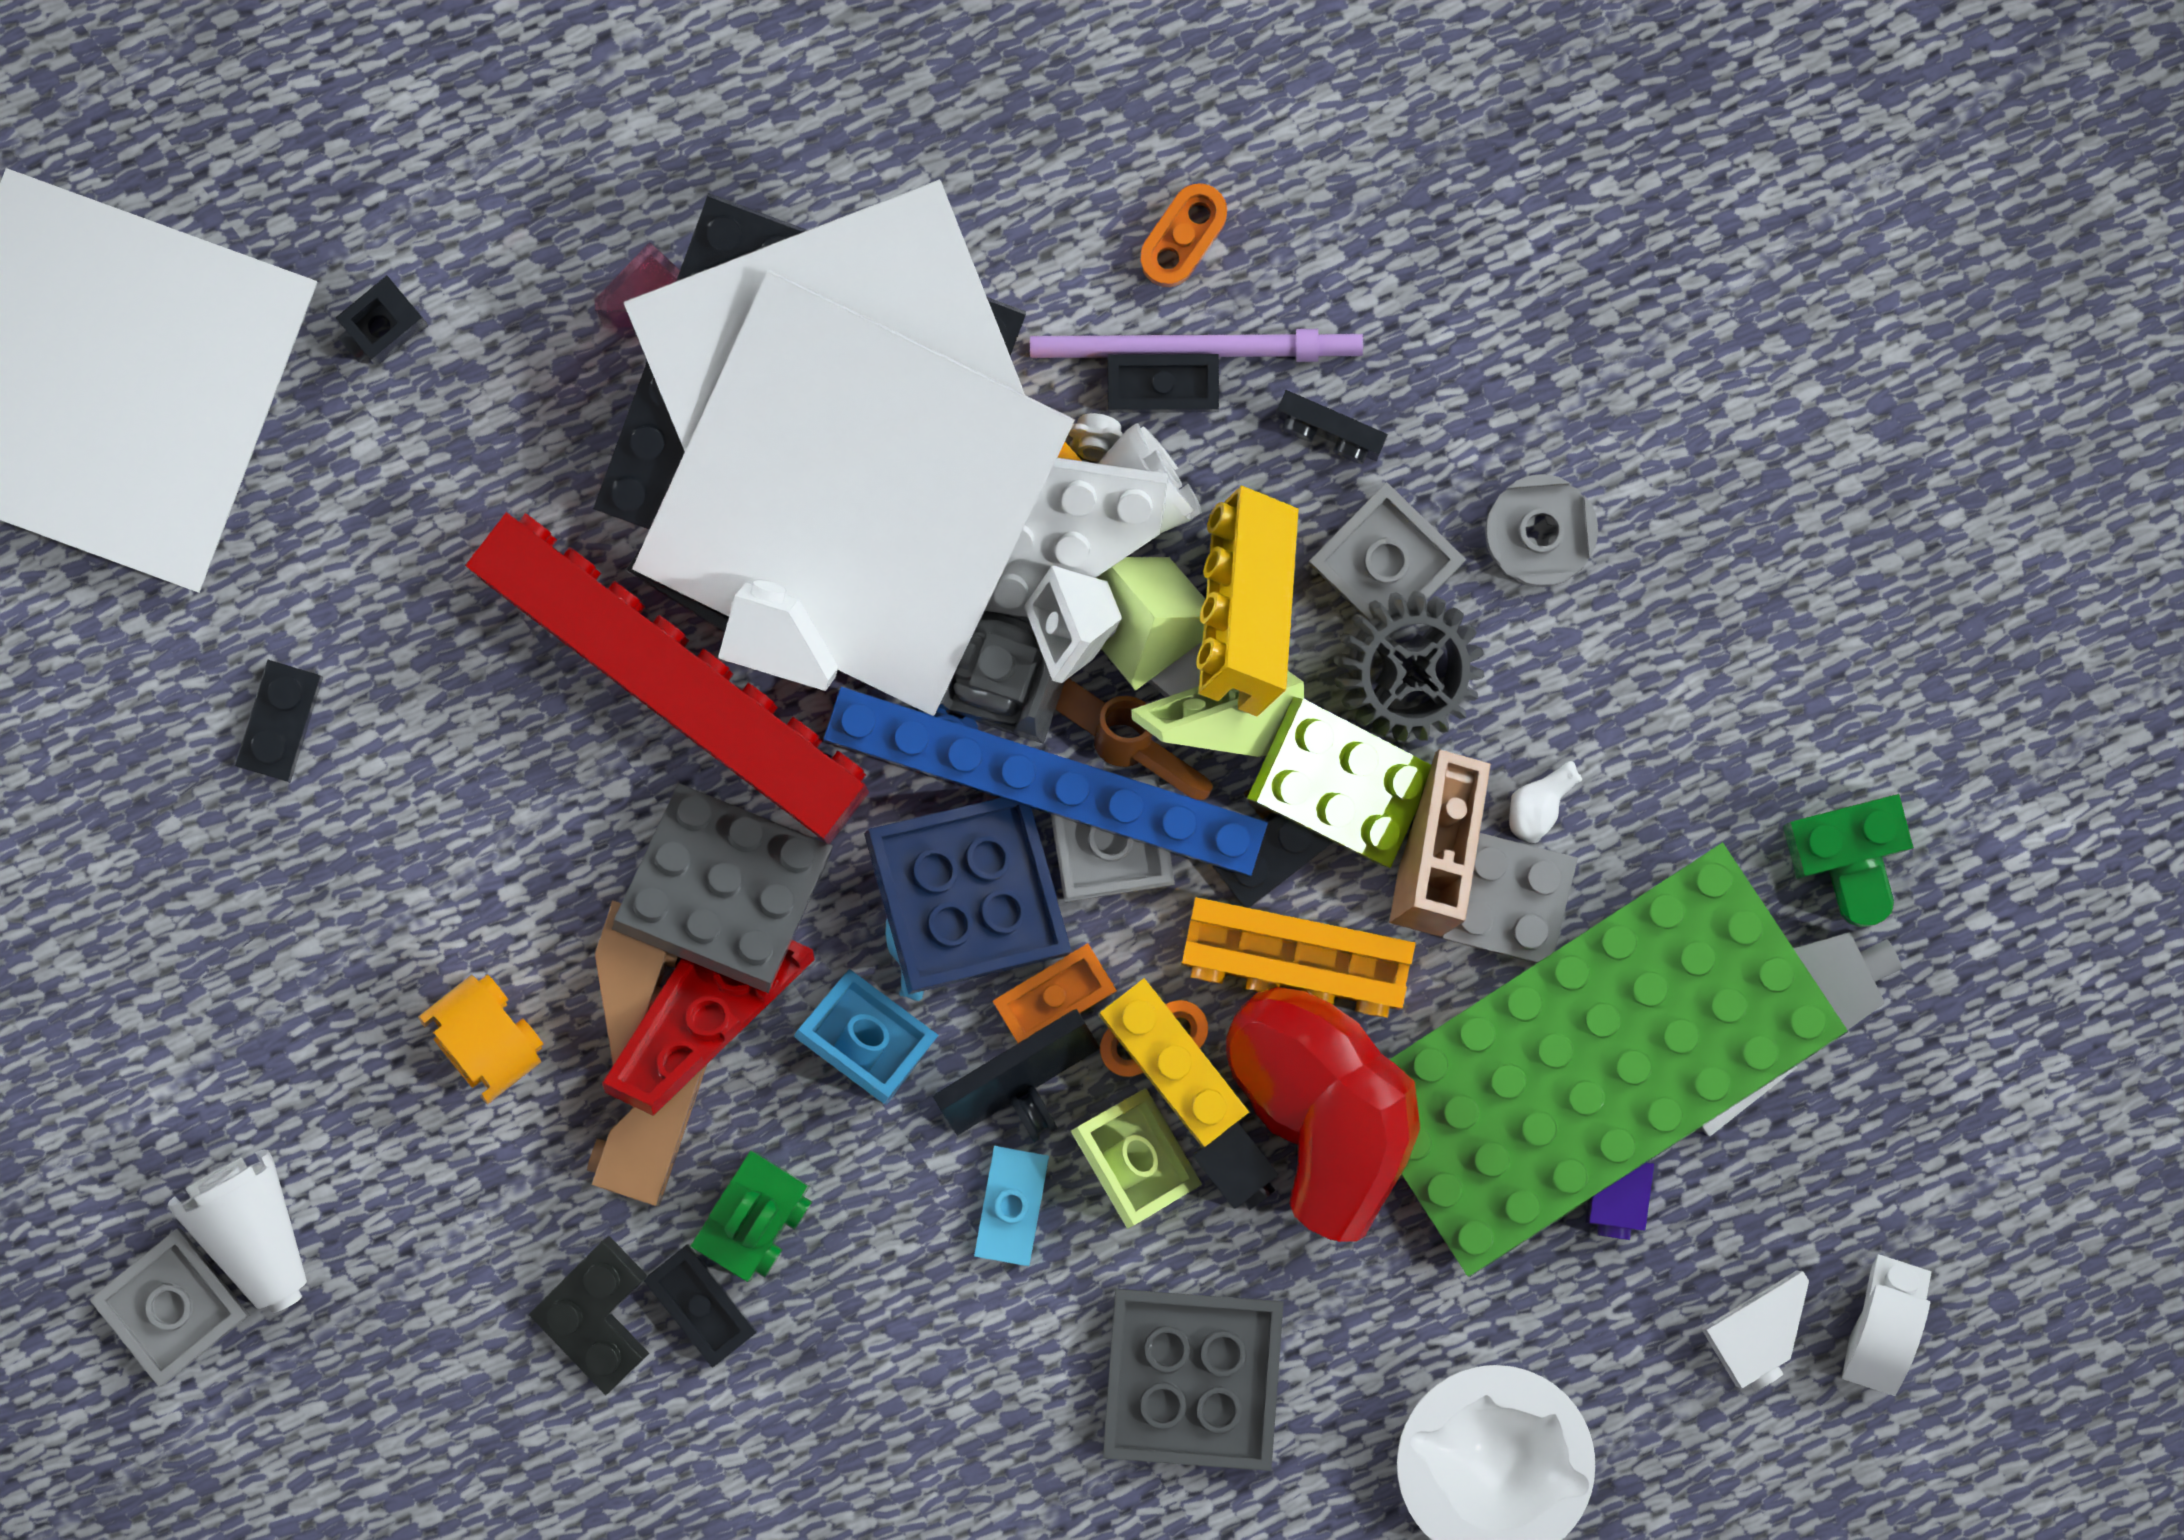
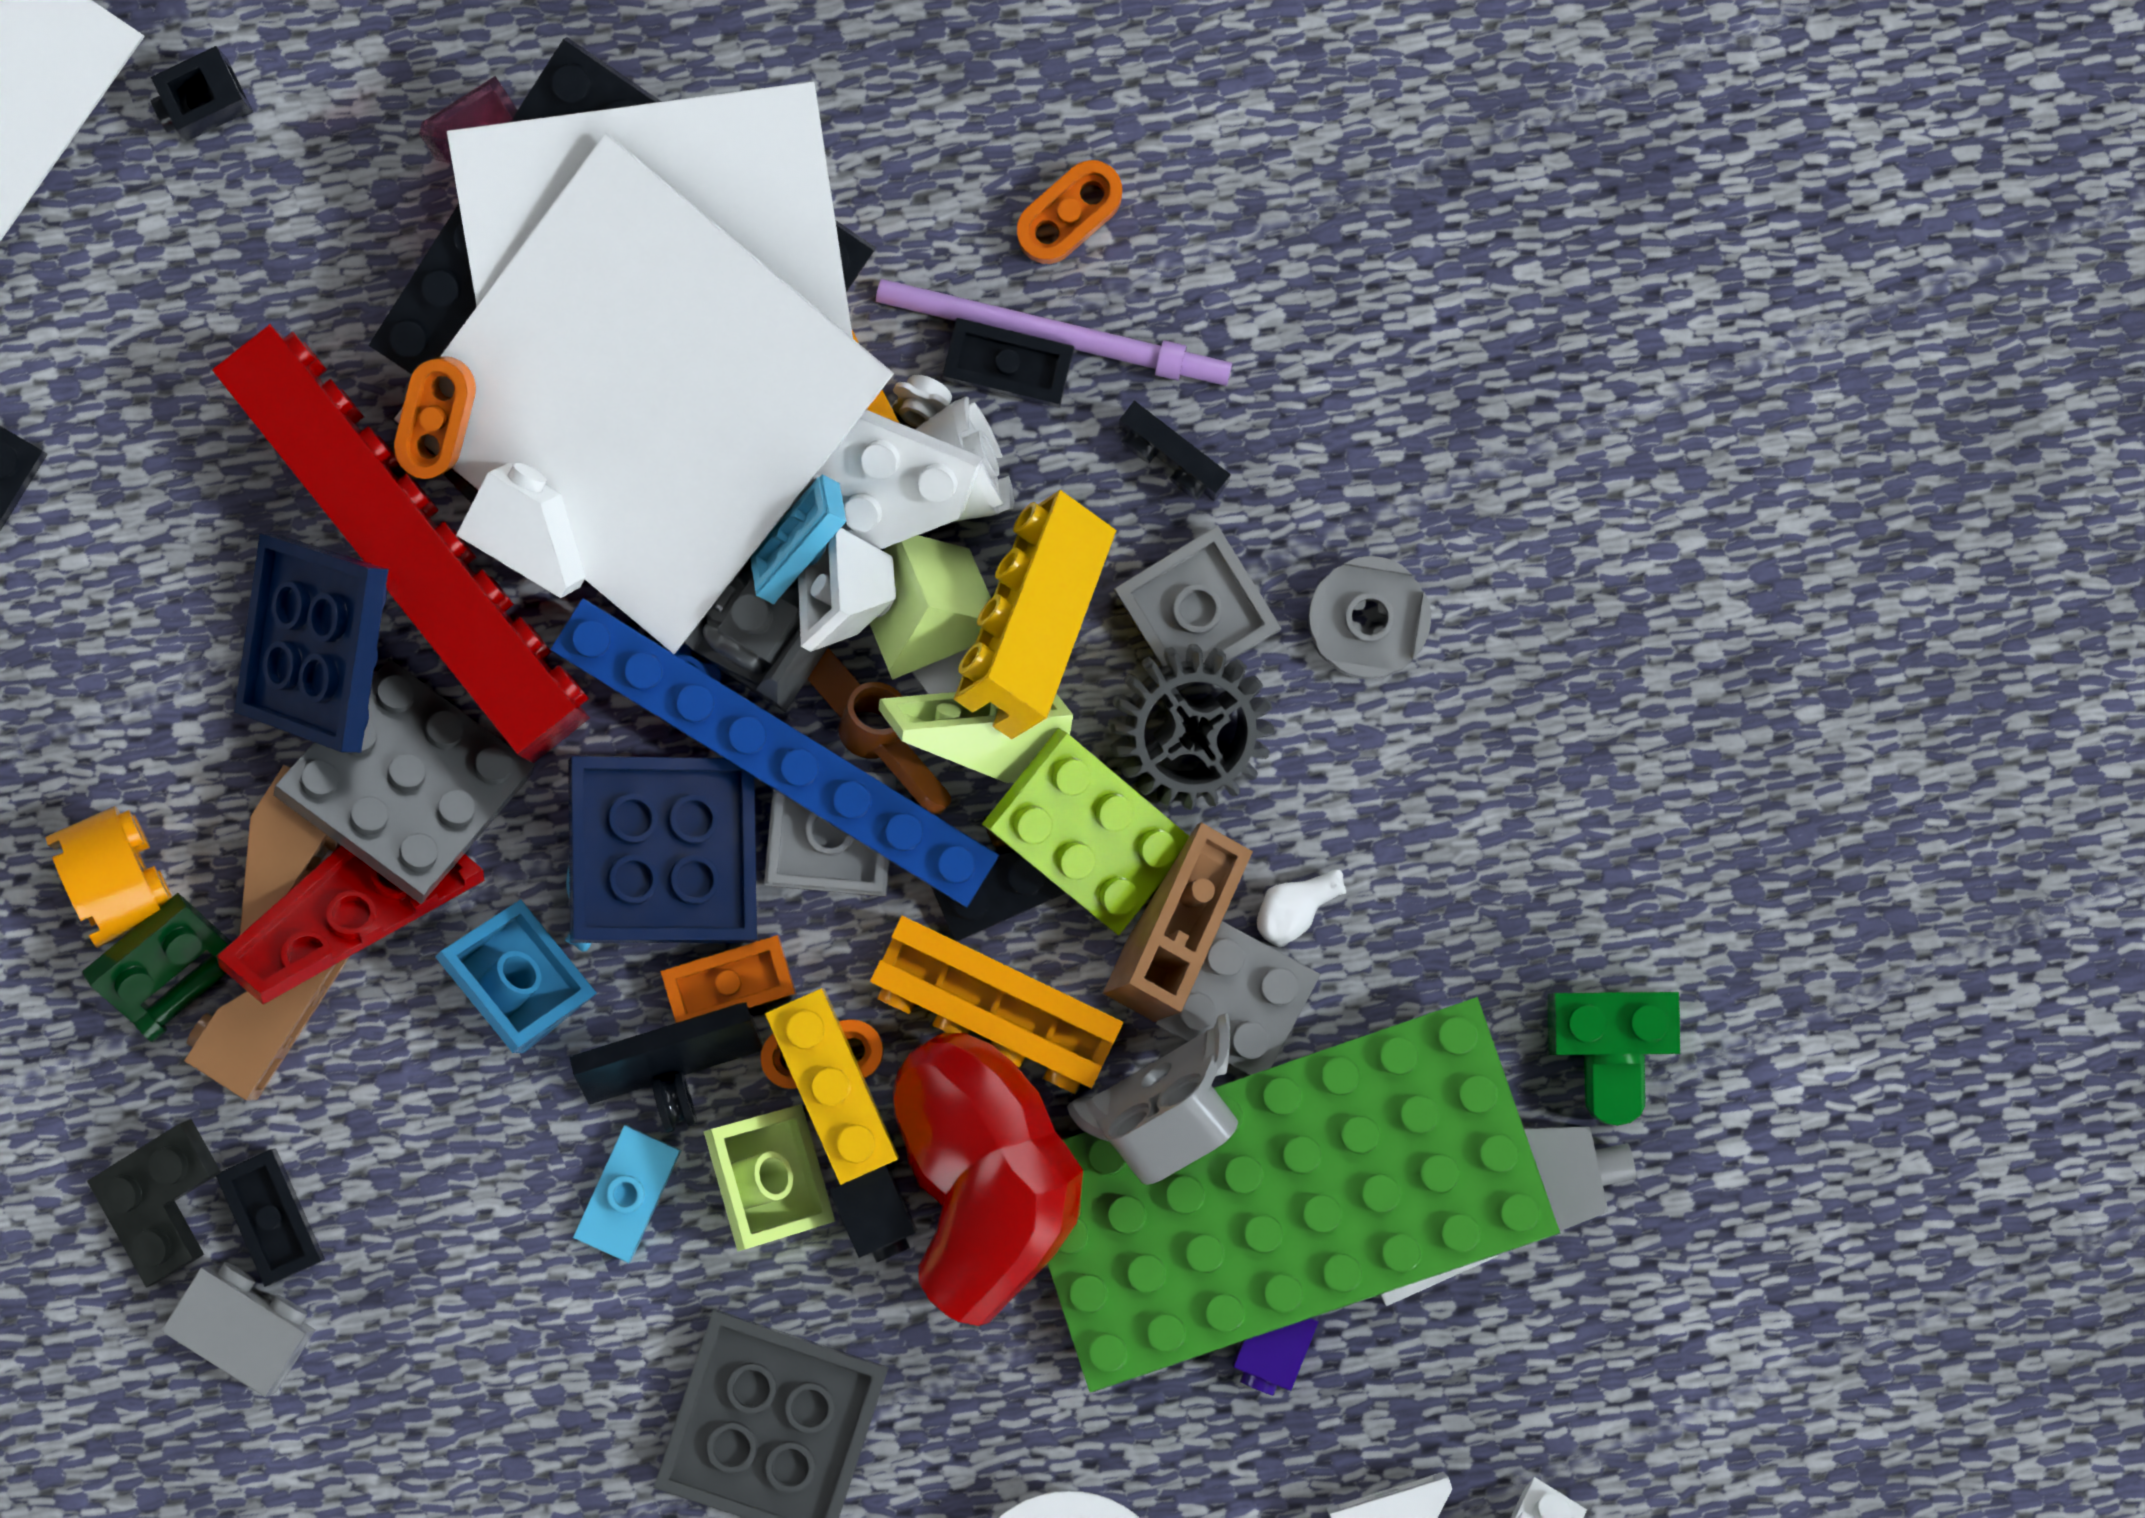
camera: 15 degrees right, 0 degrees up
(540, 1099) = (151, 958): none -> dark green plate
(611, 785) = (311, 642): none -> dark blue plate
(671, 556) = (433, 413): none -> orange plate
(698, 1409) = (239, 1327): none -> light grey brick
(752, 1216) = (347, 1137): green brick -> none
(1023, 586) = (798, 539): none -> medium azure plate
(1481, 1017) = (1172, 1121): none -> light grey piece

